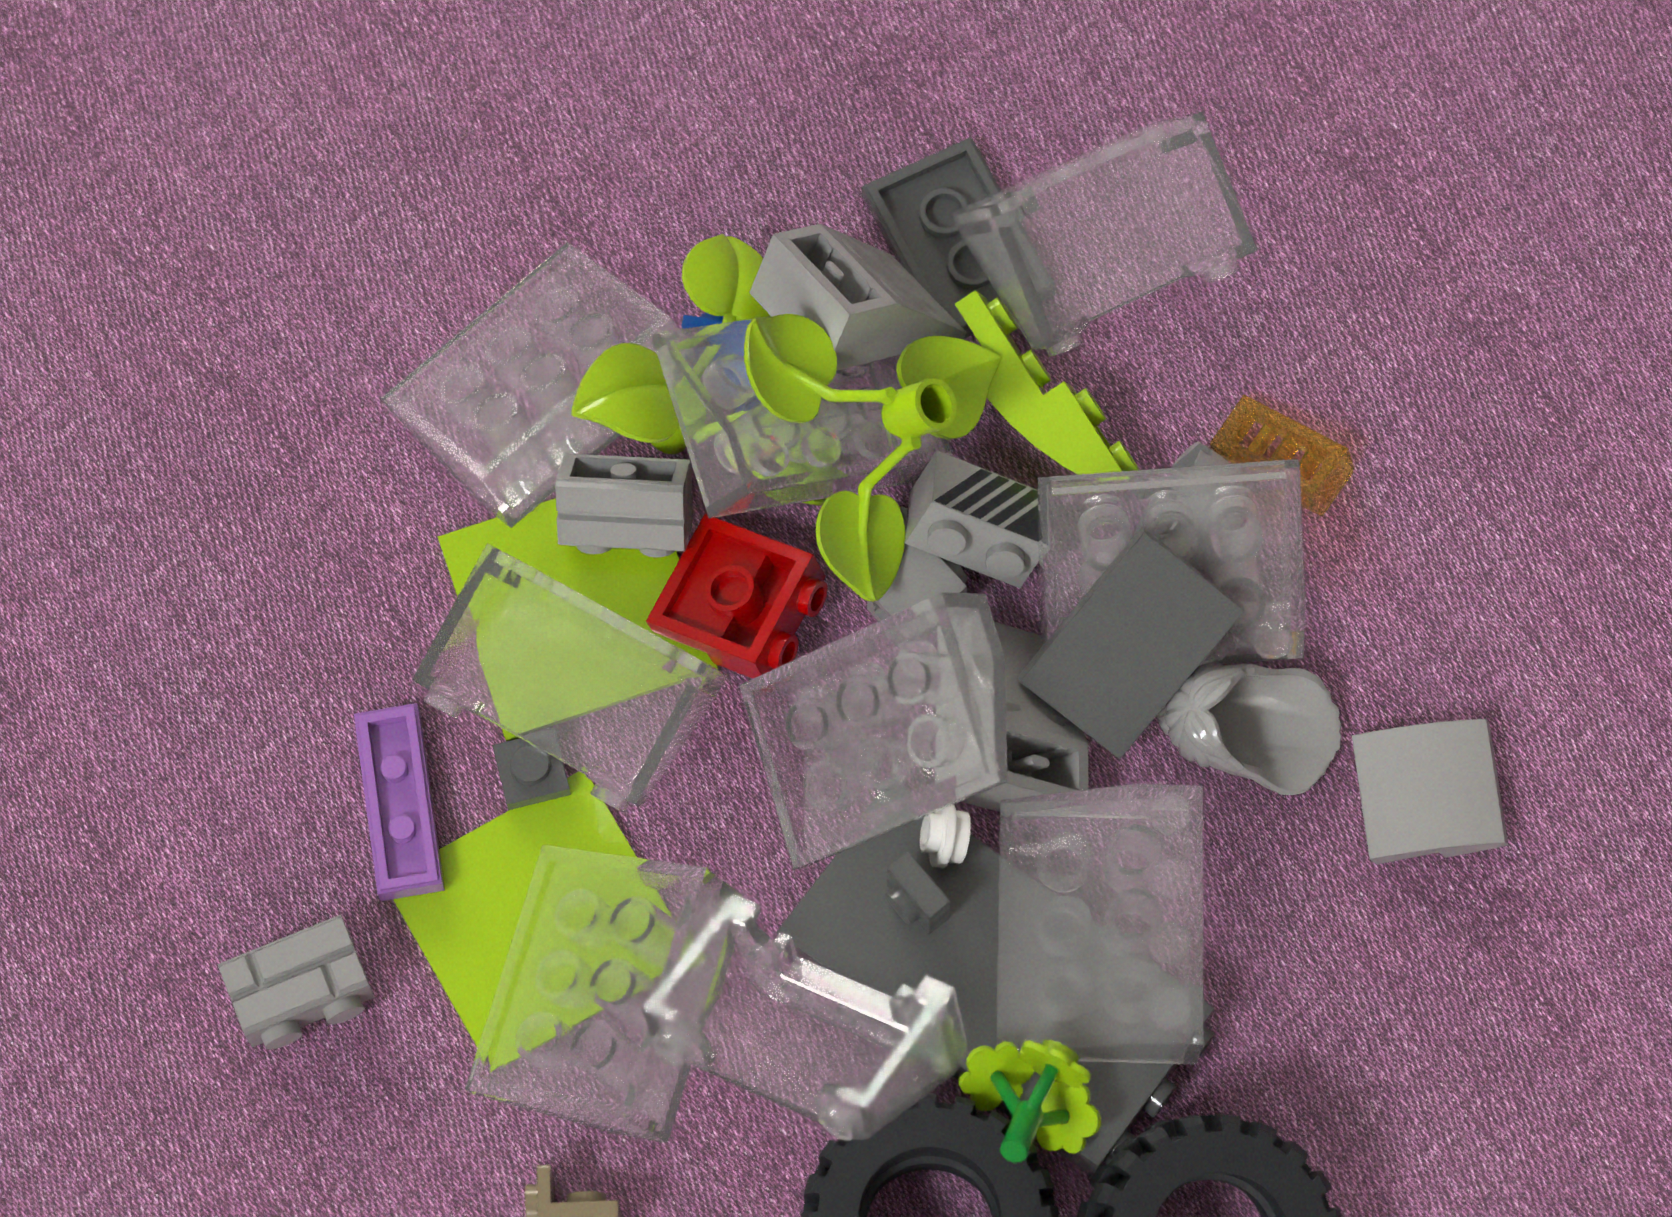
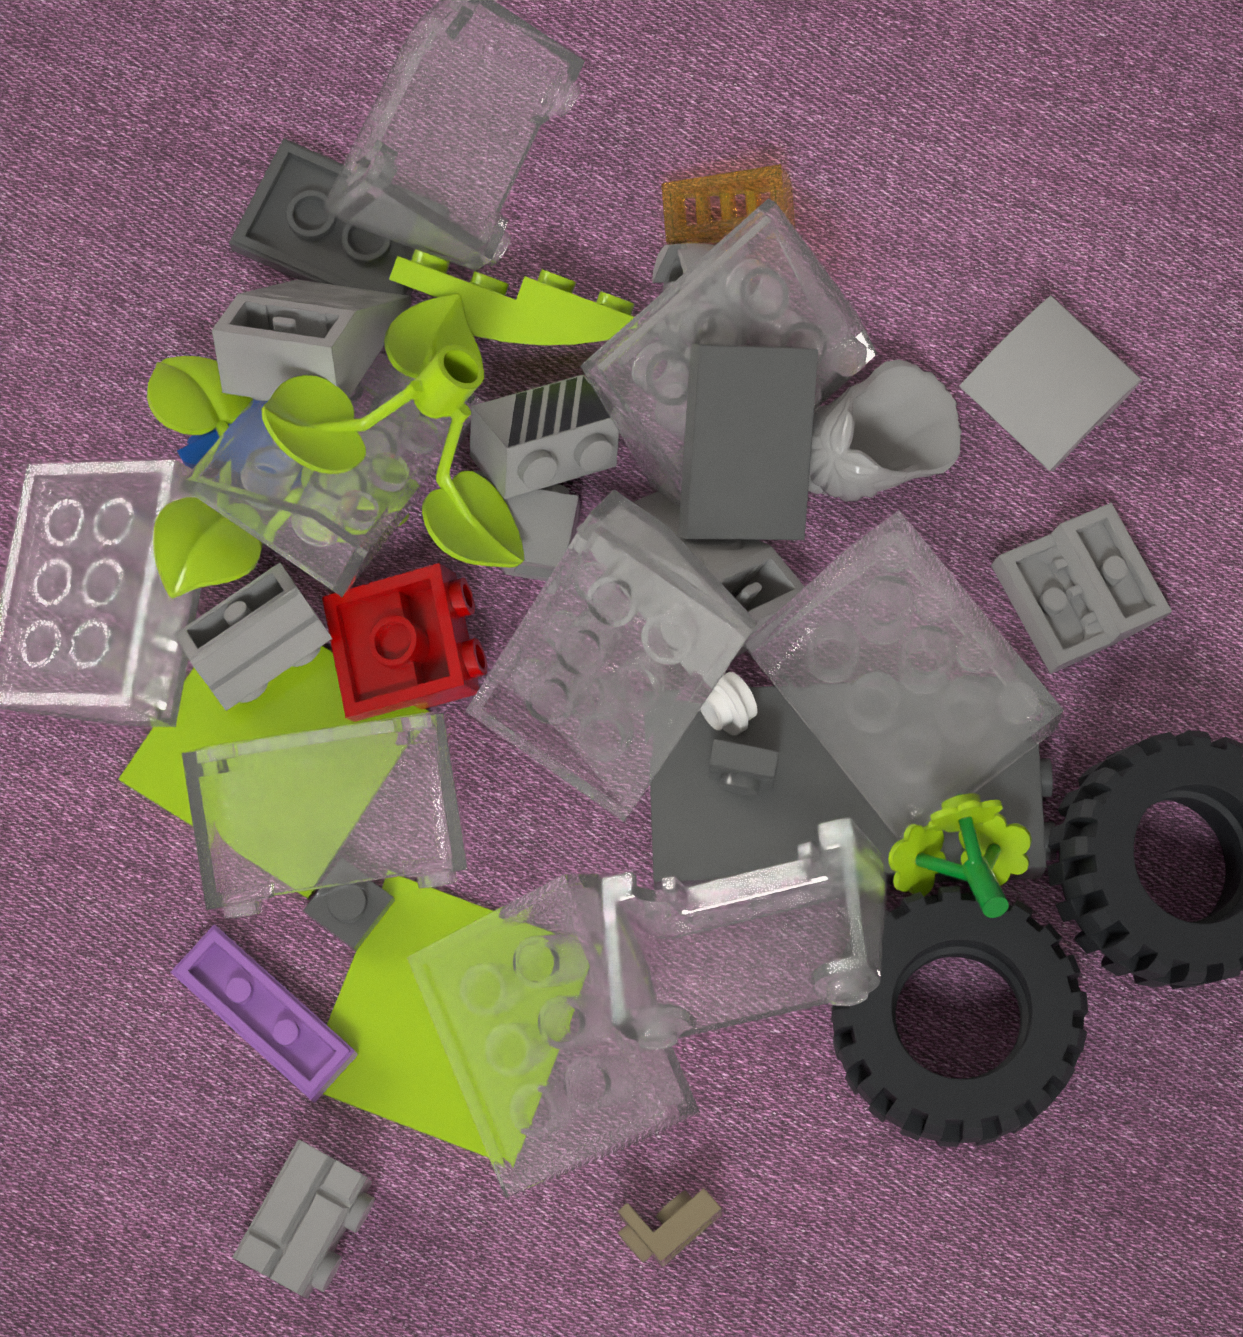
camera: 35 degrees left, 5 degrees up
(1319, 973) = (1081, 588): none -> light grey slope

